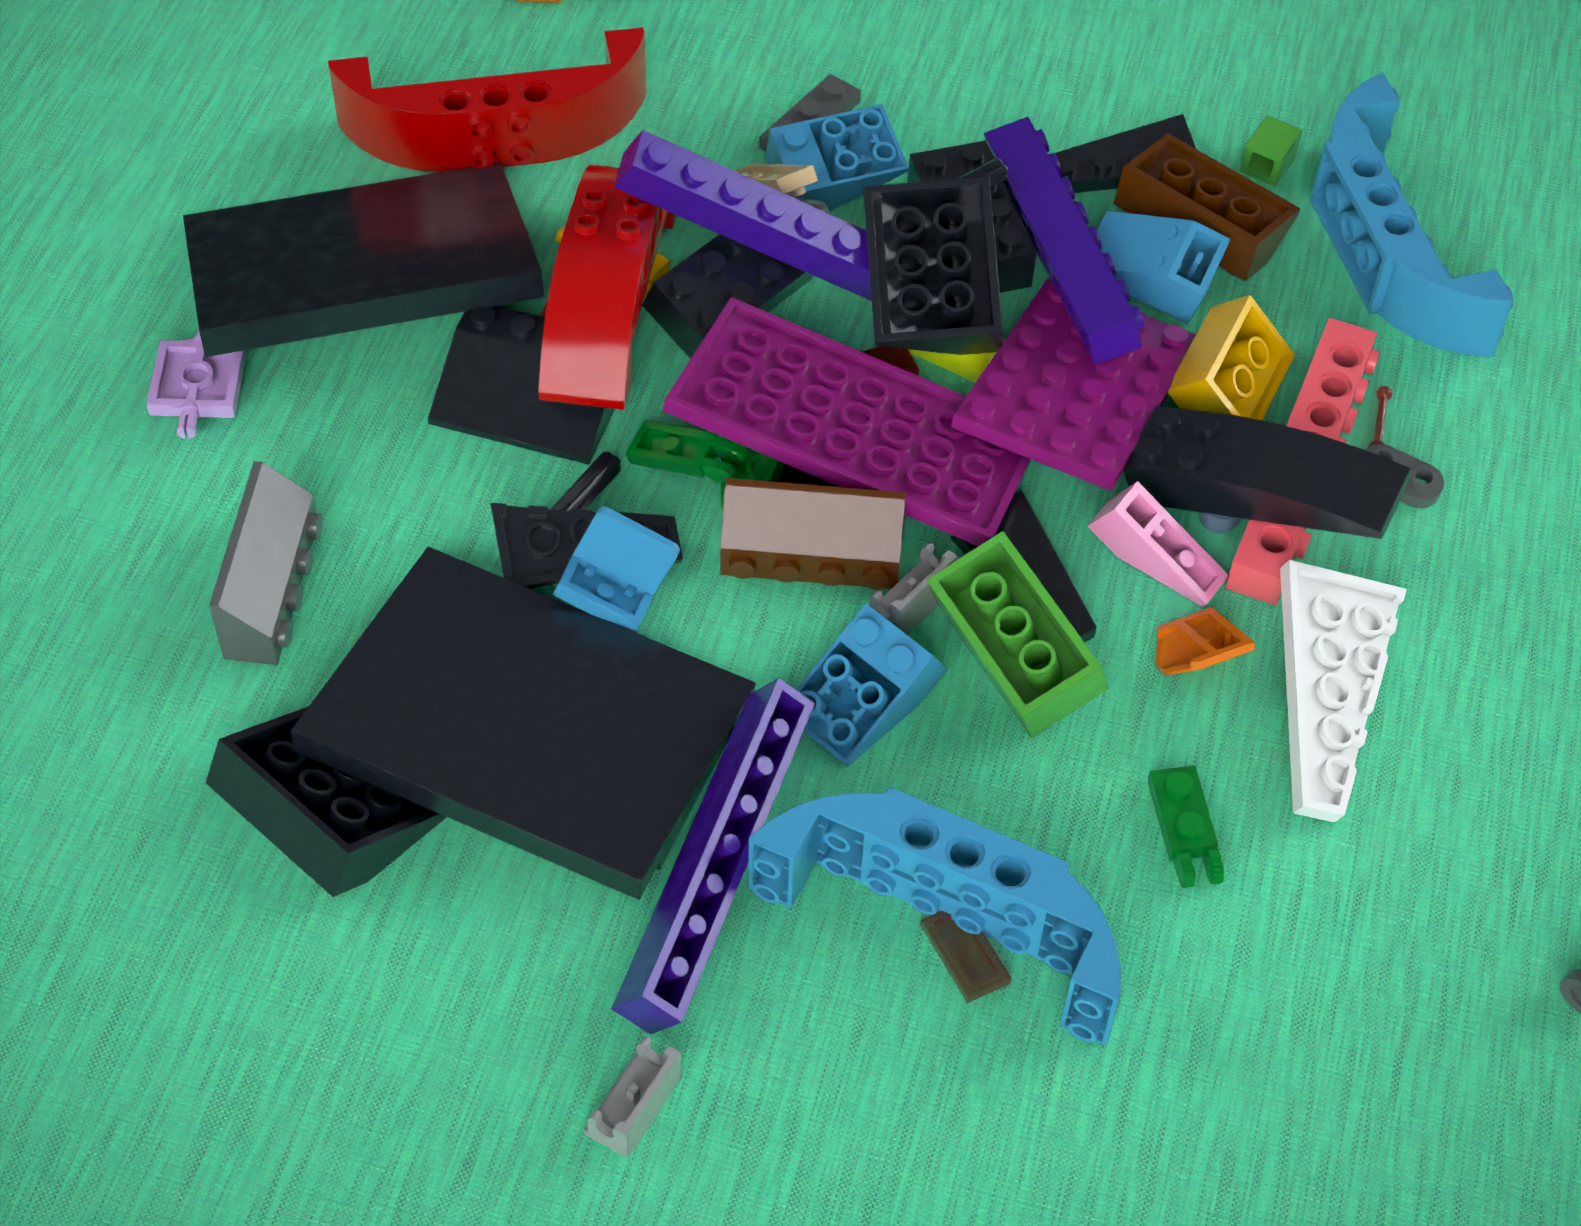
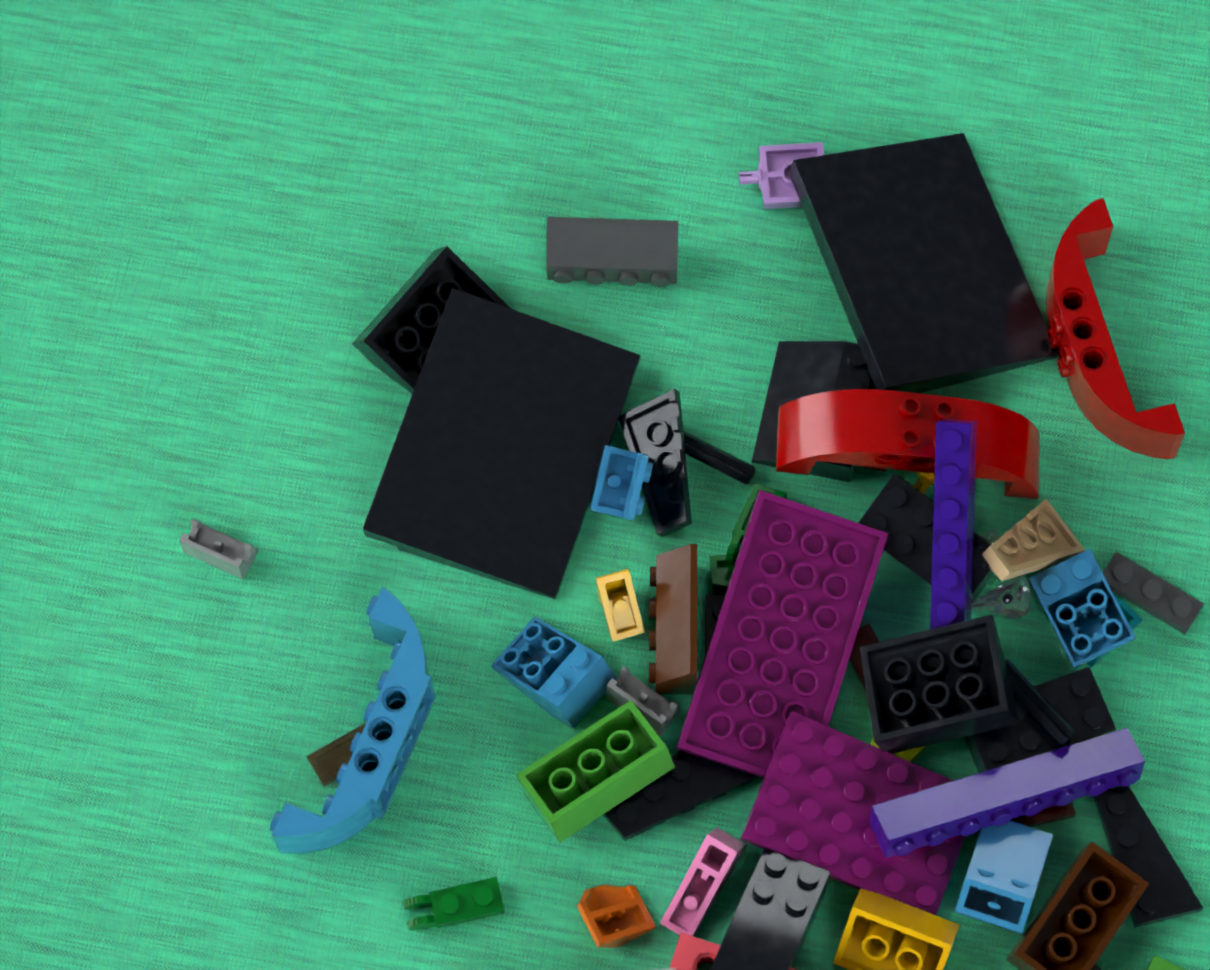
camera: 90 degrees right, 15 degrees up
(713, 859) = (403, 577): dark purple brick -> none
(782, 598) = (619, 605): none -> yellow slope

